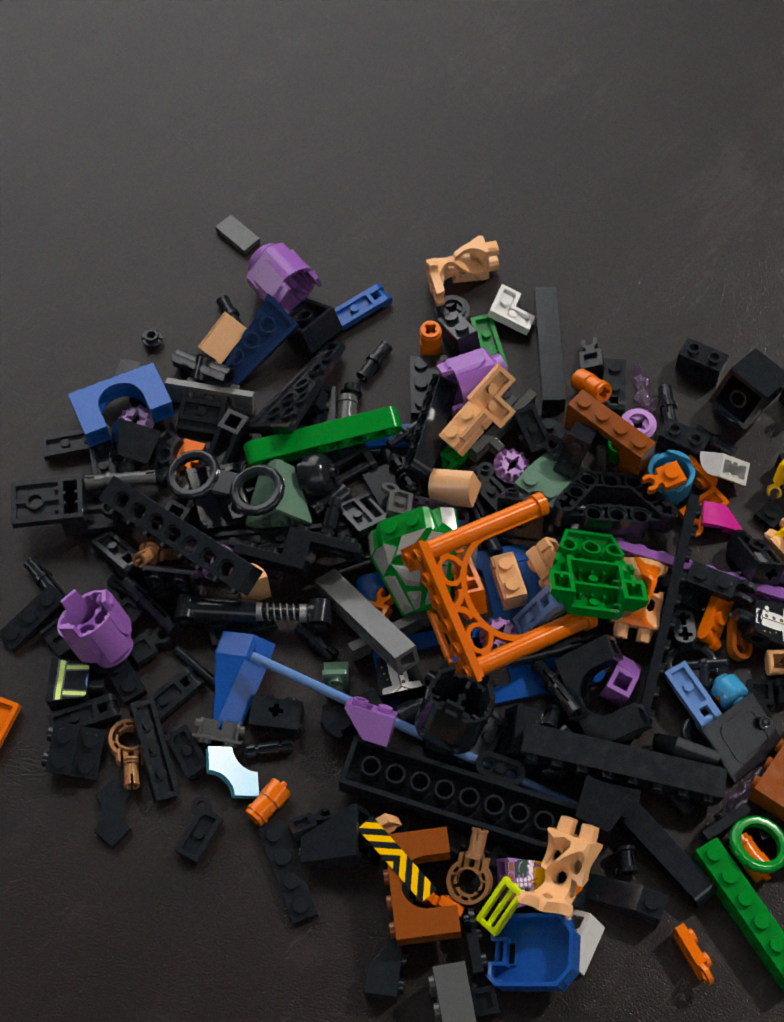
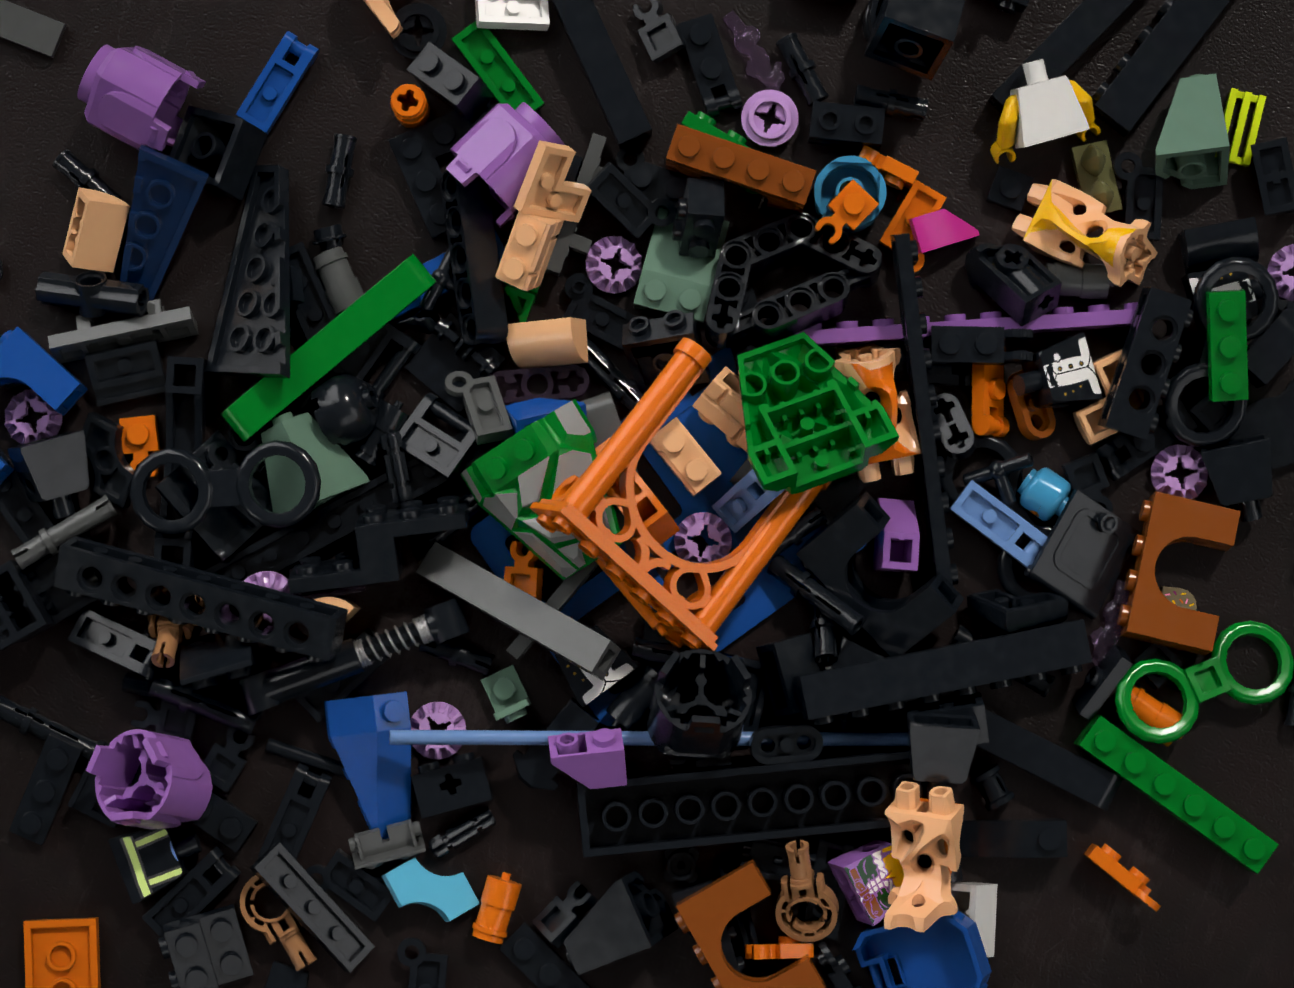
camera: 25 degrees left, 25 degrees up
(272, 688) = (441, 713): none -> lavender gear
(389, 822) = (666, 883): light nougat tile -> none
(397, 859) = (706, 931): sticker -> none
(514, 888) = (868, 904): neon yellow tile -> none
(591, 384) = (679, 87): orange piece -> none
(725, 467) = (922, 150): white brick -> none

